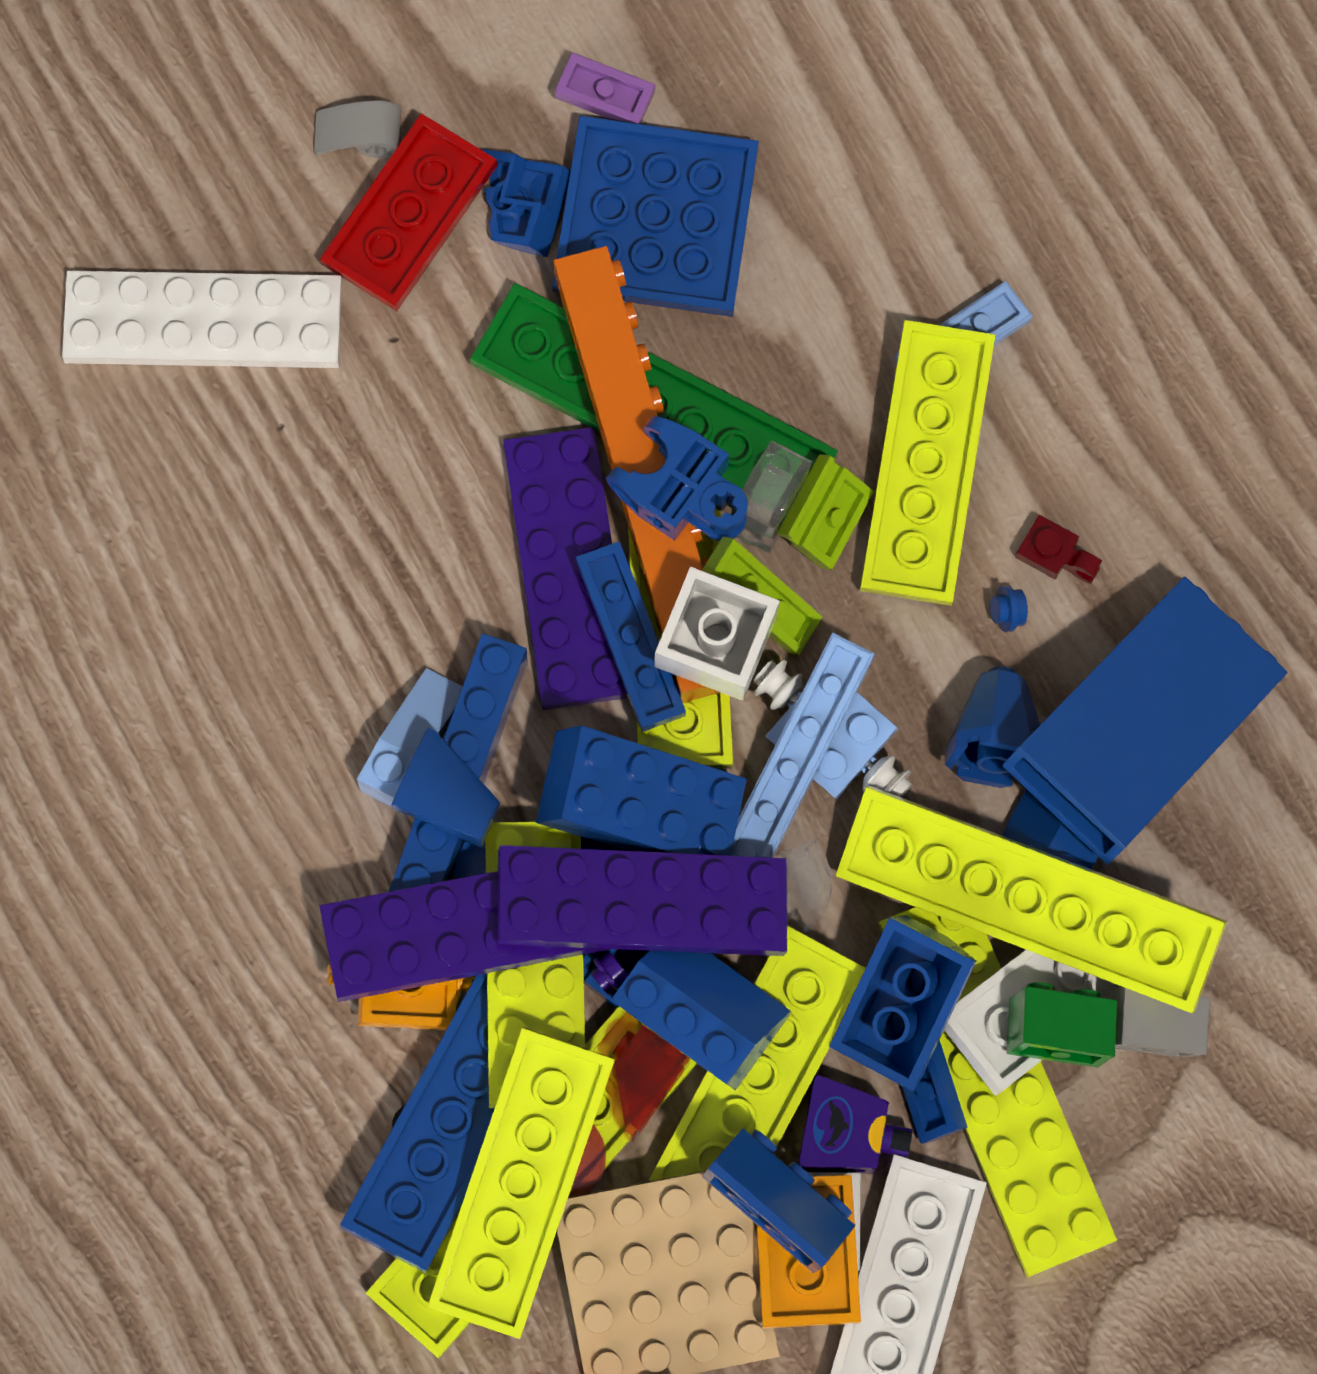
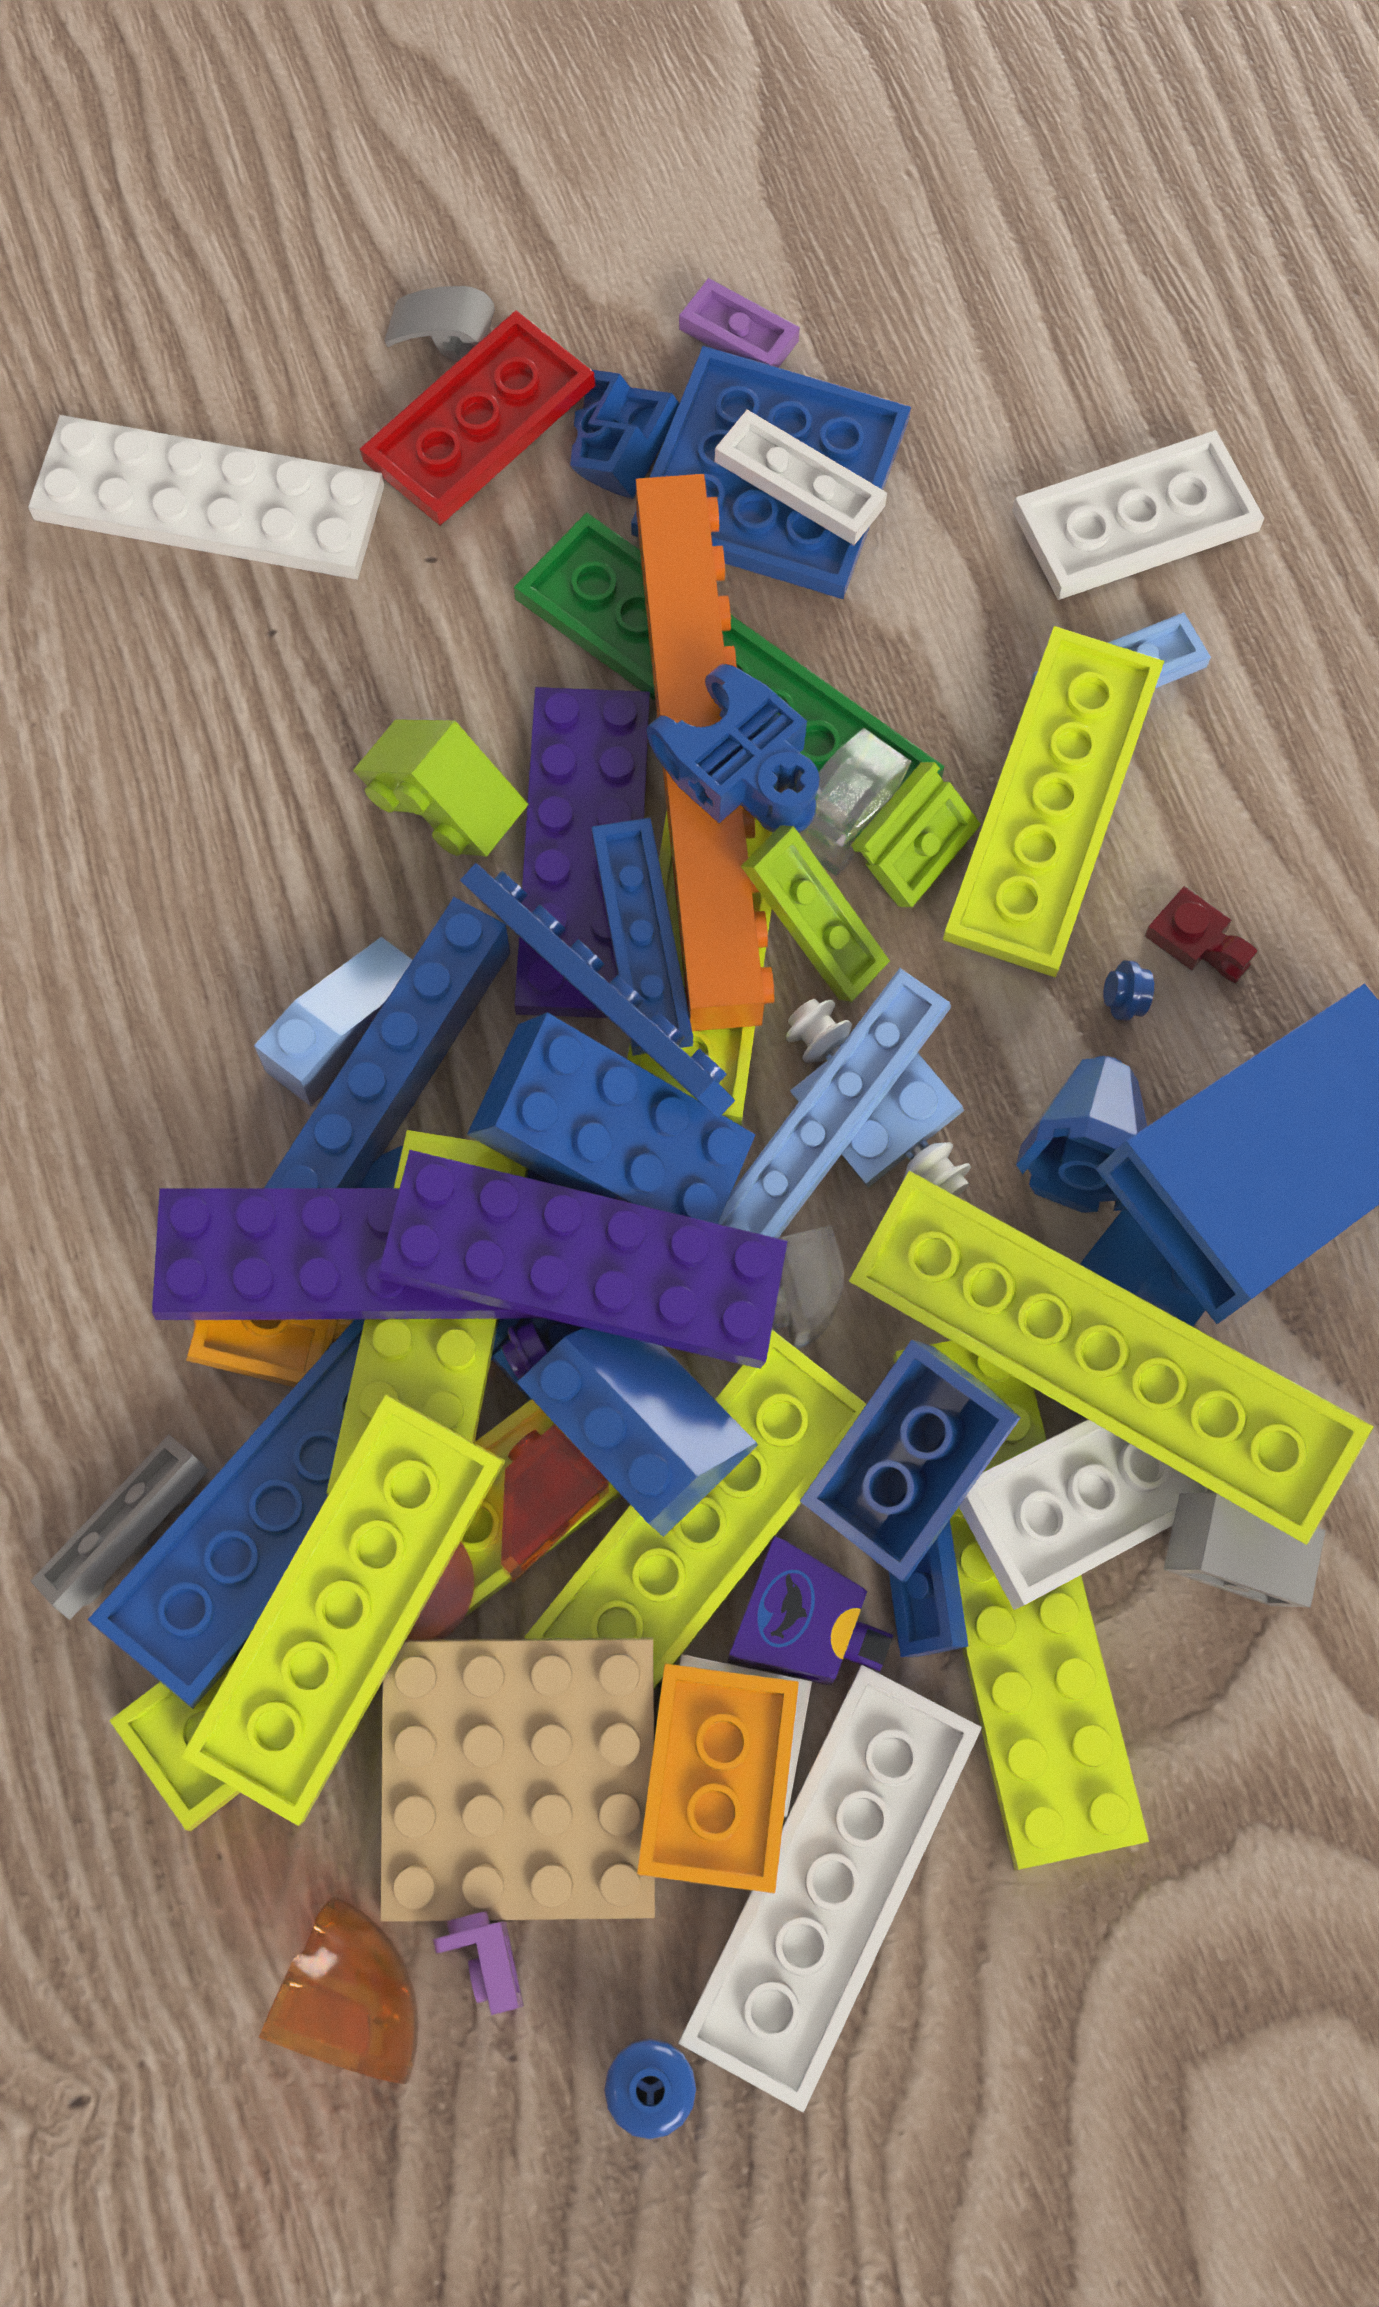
camera: 10 degrees right, 5 degrees down
(338, 1154) = (119, 1527): none -> light grey plate
(446, 792) = (359, 1077): blue slope -> none
(449, 538) = (446, 780): none -> lime brick
(622, 696) = (614, 999): none -> blue plate
(681, 226) = (800, 477): none -> white plate
(716, 633) = (748, 934): white brick -> none
(780, 1199) = (693, 1697): blue slope -> none
(956, 201) = (1137, 514): none -> white plate
(1062, 1025) = (1121, 1530): green brick -> none

